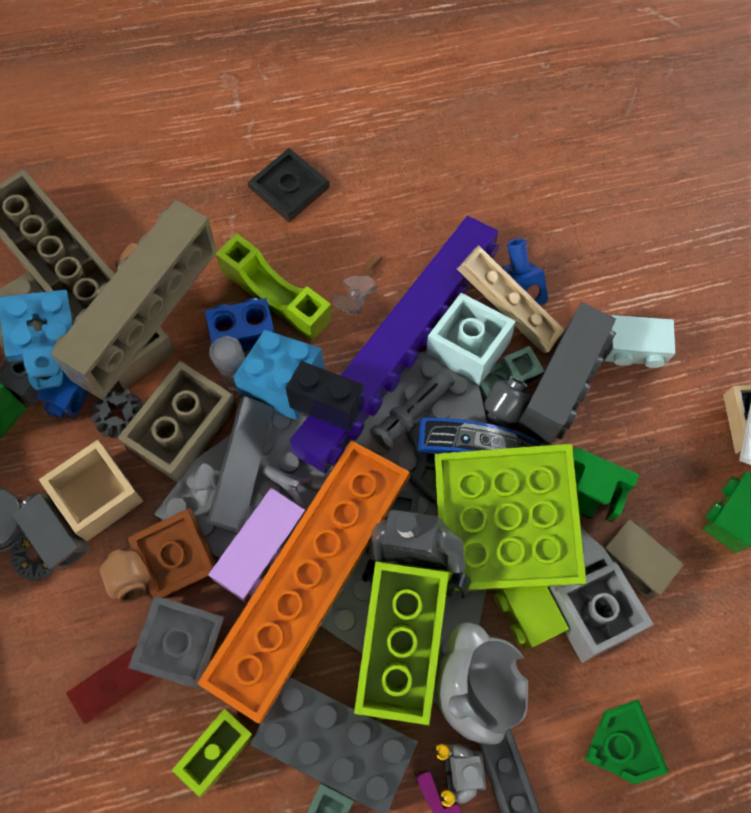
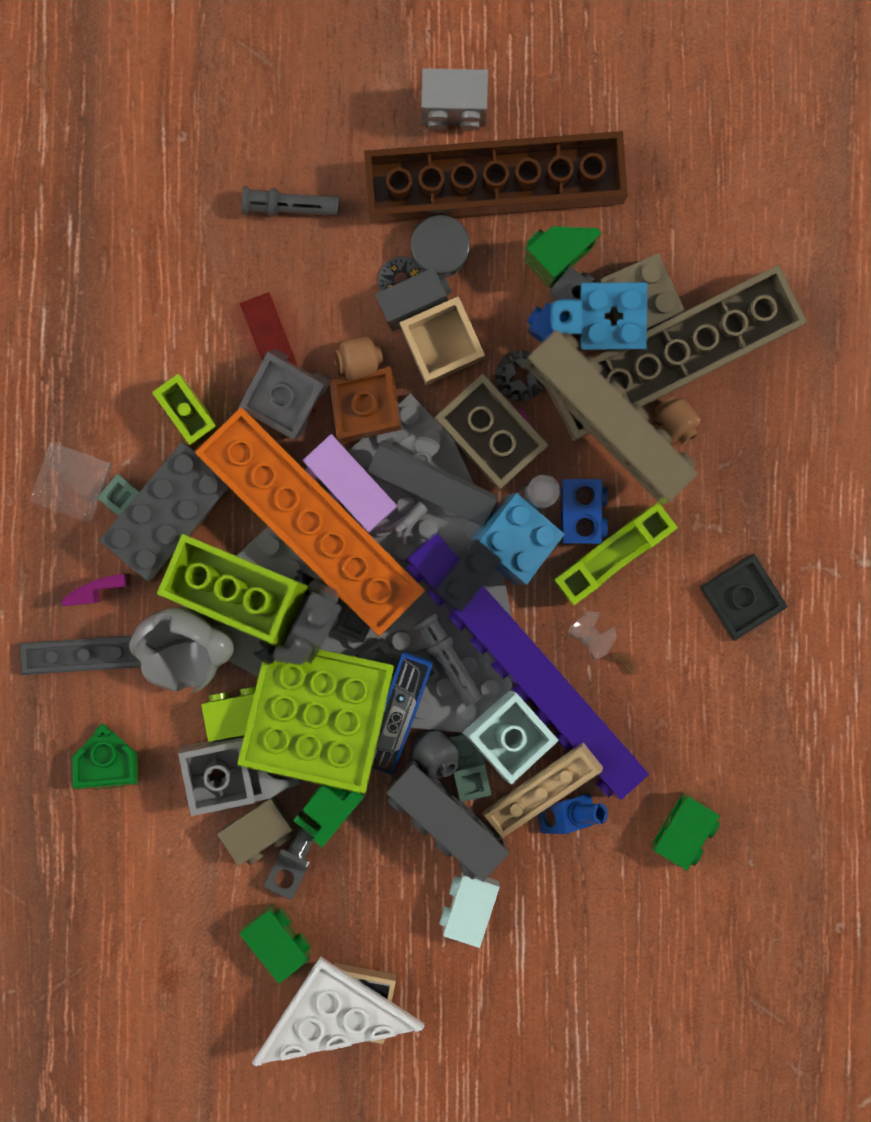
camera: 105 degrees right, 20 degrees up
(465, 773) = (115, 616): light grey piece -> none
(507, 183) = (686, 832): none -> green brick
(656, 515) = (293, 861): none -> dark grey bracket

